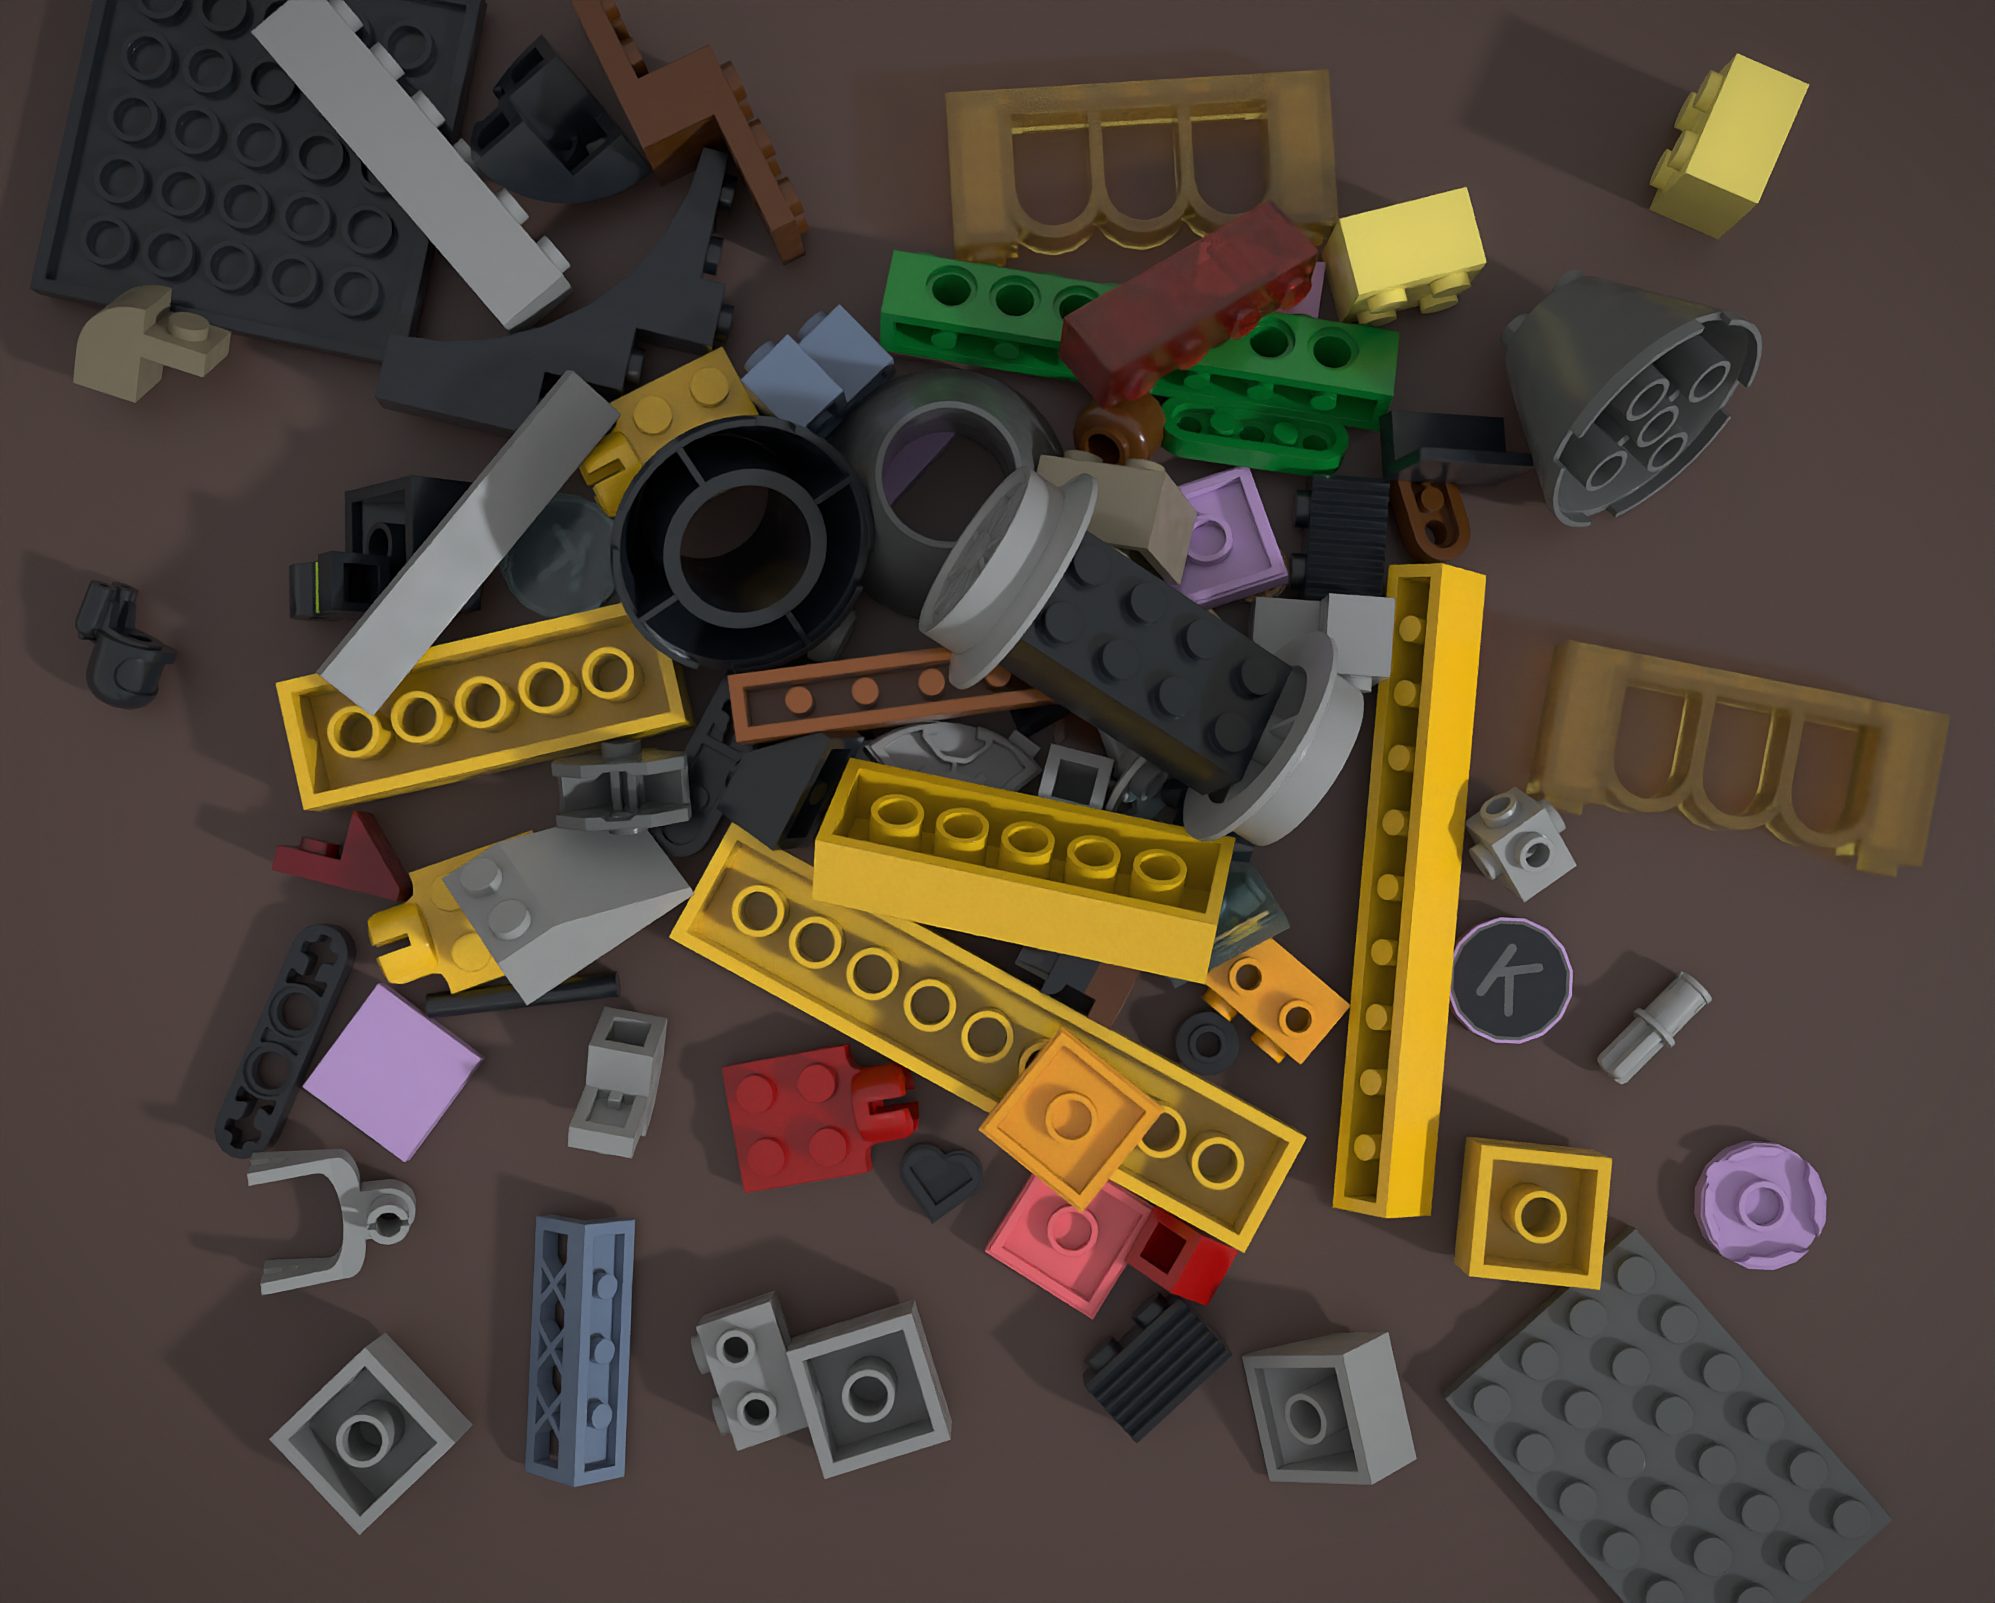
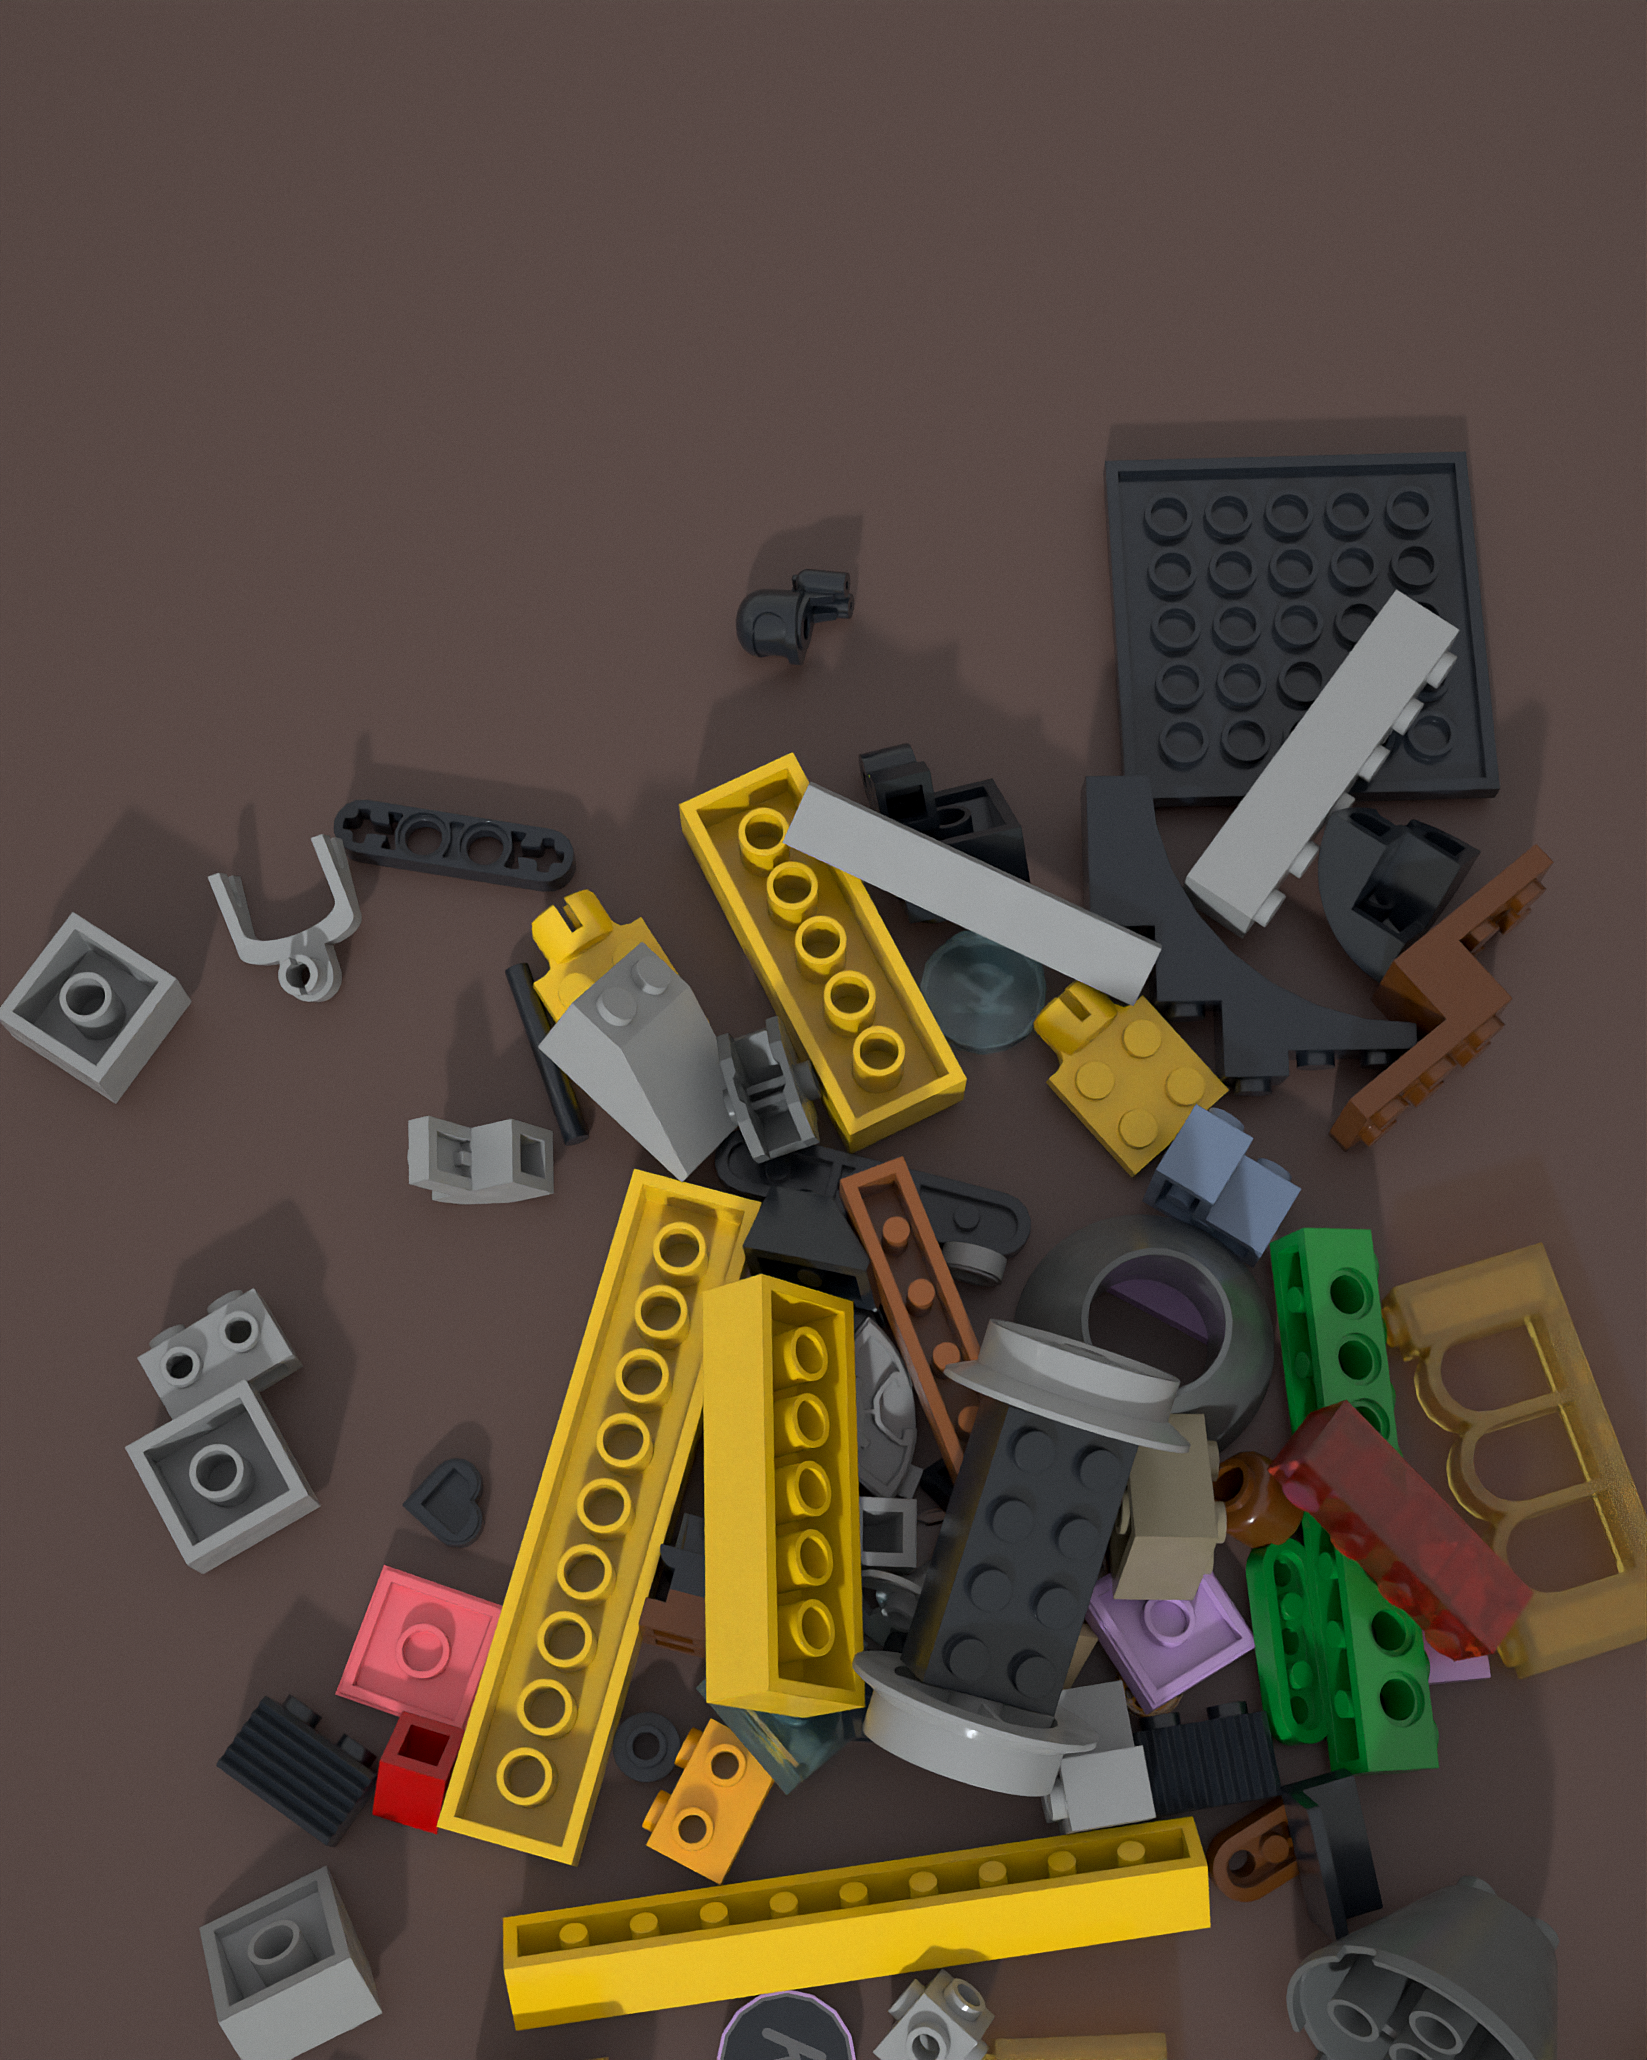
camera: 75 degrees right, 15 degrees down
(136, 335) = (1087, 562): dark tan brick -> none
(365, 864) = (639, 872): dark red slope -> none
(393, 1072) = (445, 951): lavender tile -> none
(588, 1351) = (210, 1193): sand blue fence -> none
(776, 589) = (983, 1176): black cone -> none
(813, 1115) = (487, 1360): red plate -> none
(1071, 1118) = (539, 1609): light orange tile -> none
(1403, 258) = (1516, 1752): light yellow brick -> none

